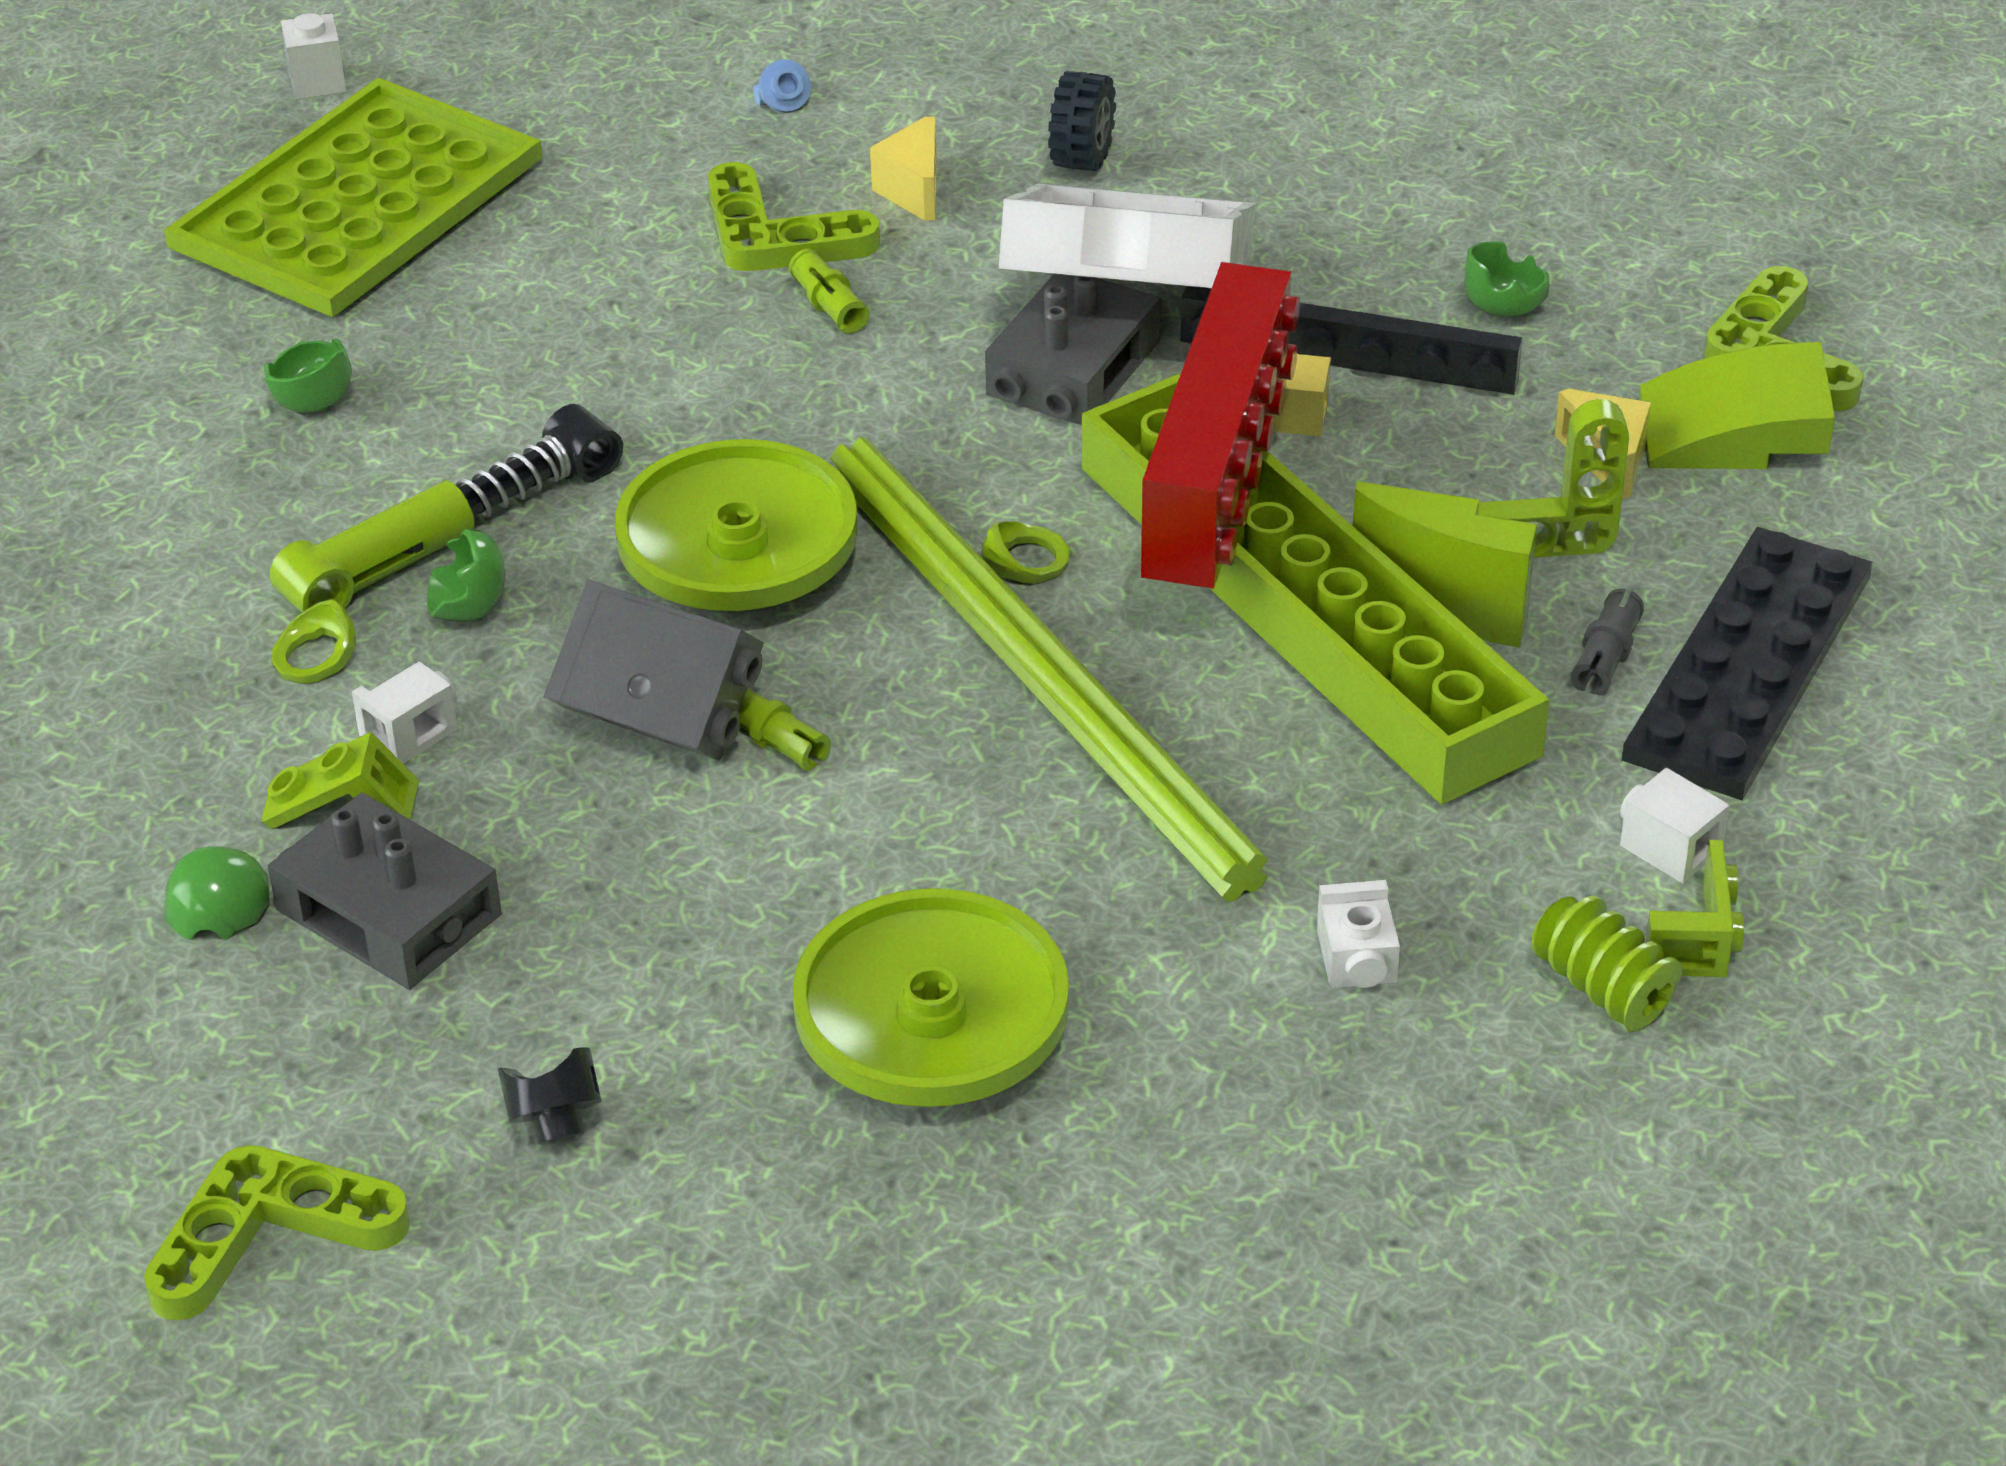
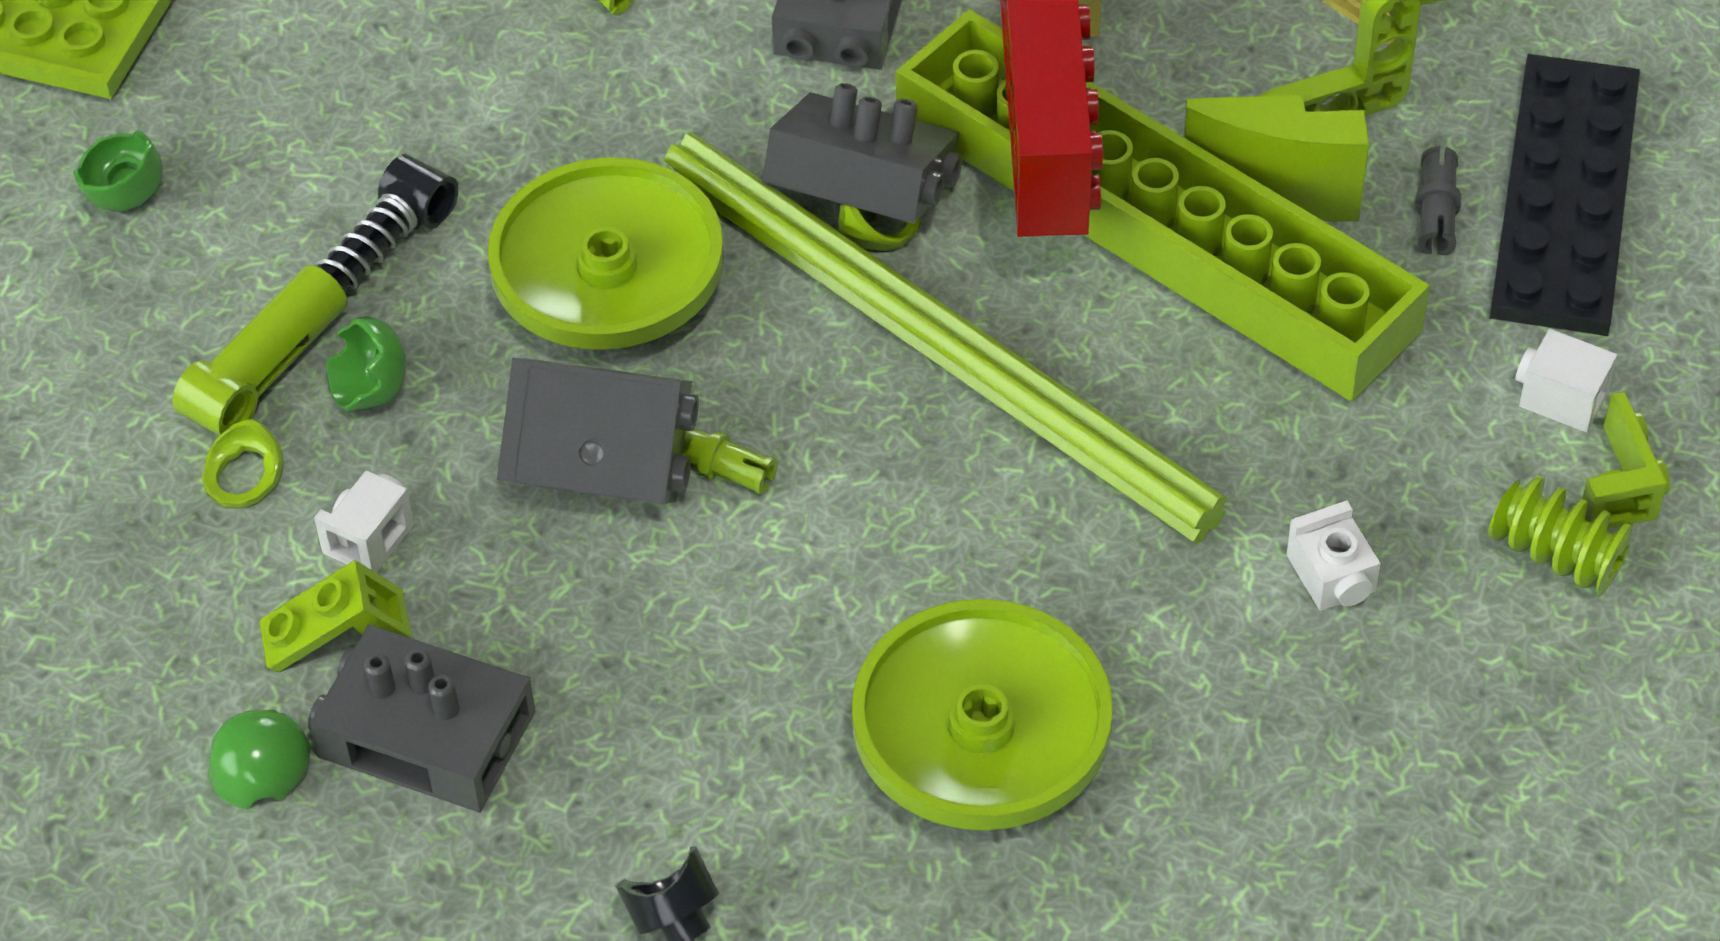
camera: 15 degrees left, 10 degrees up
(1024, 486) = (863, 154): none -> dark grey piece

